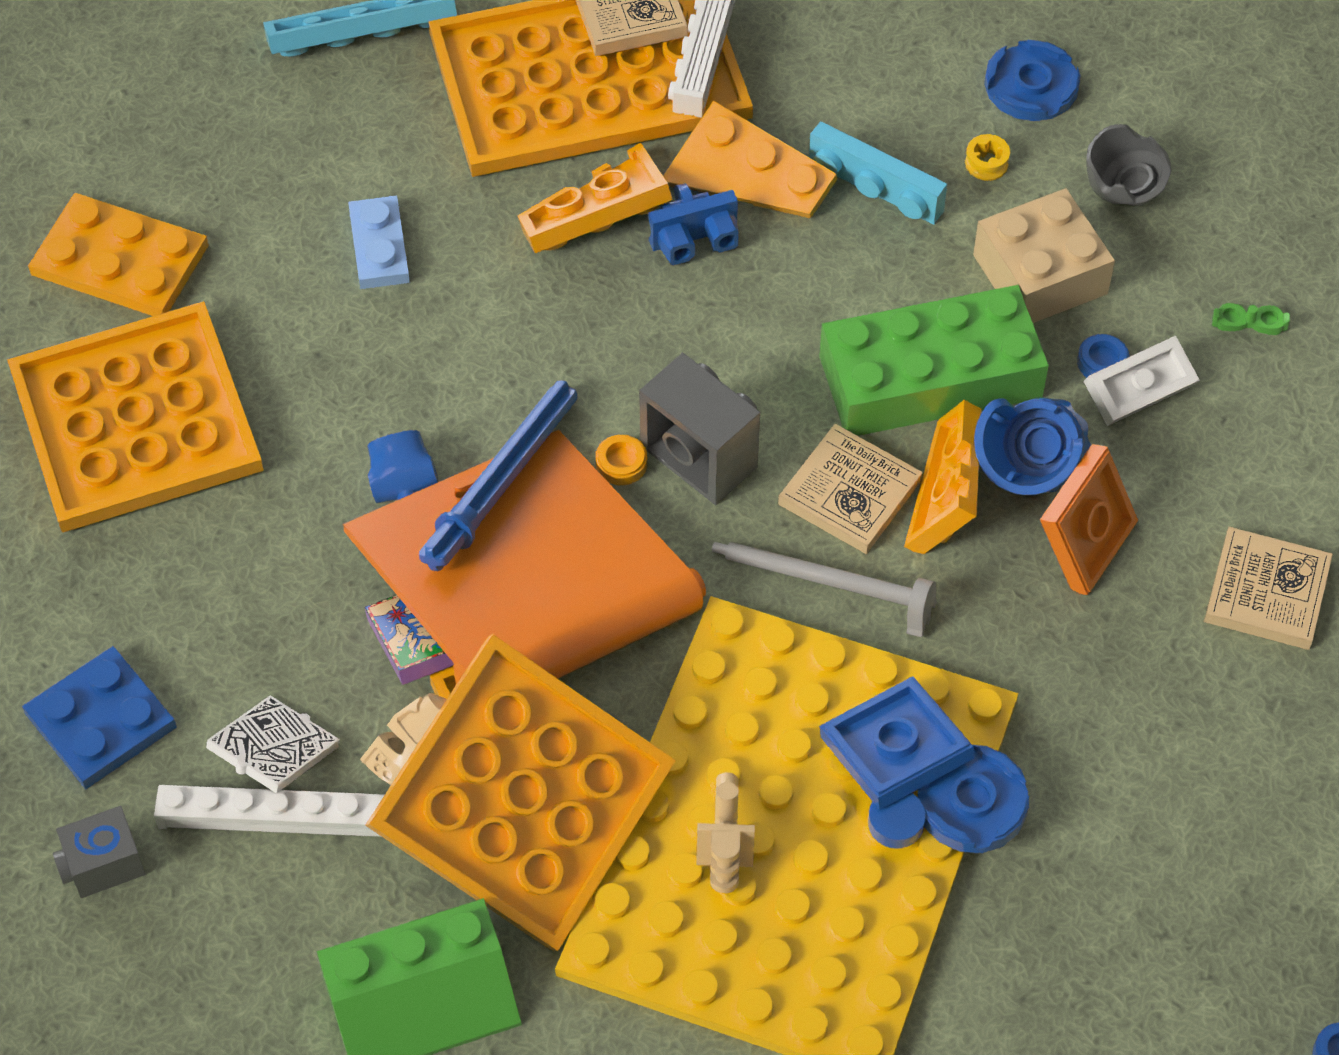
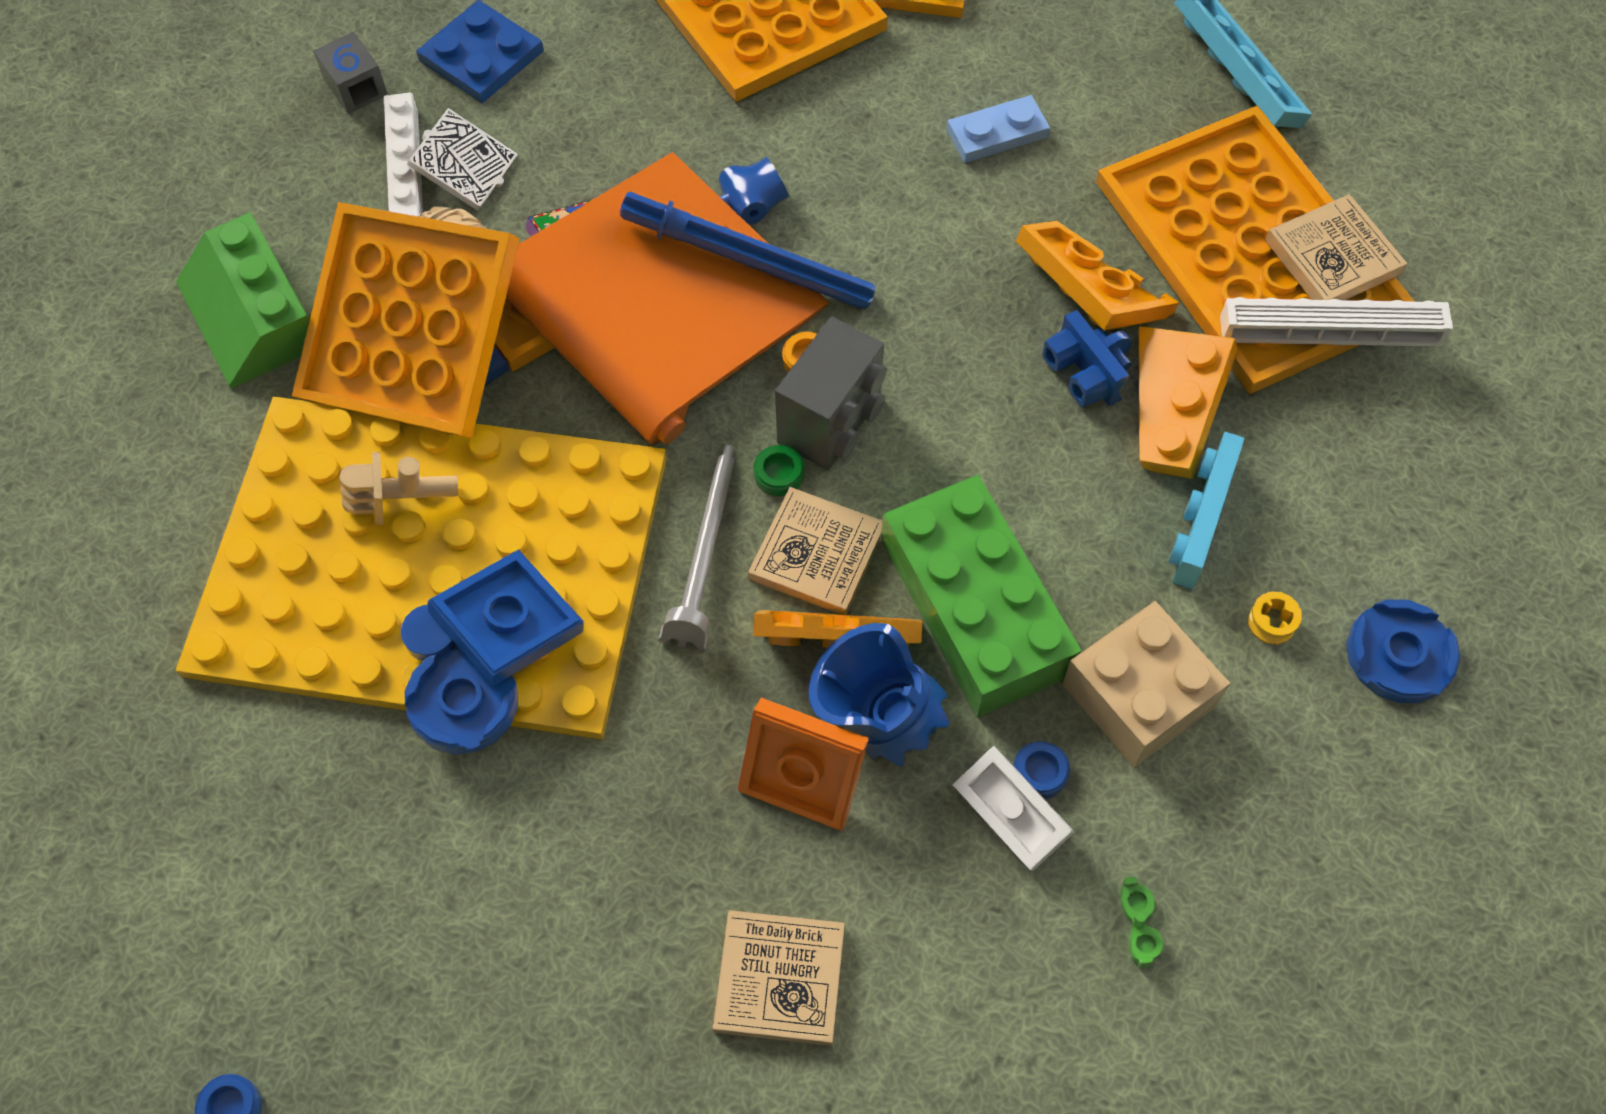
camera: 80 degrees right, 5 degrees up
(752, 506) = (778, 469): none -> green tile
(1126, 166) = (1297, 752): dark grey hair -> none

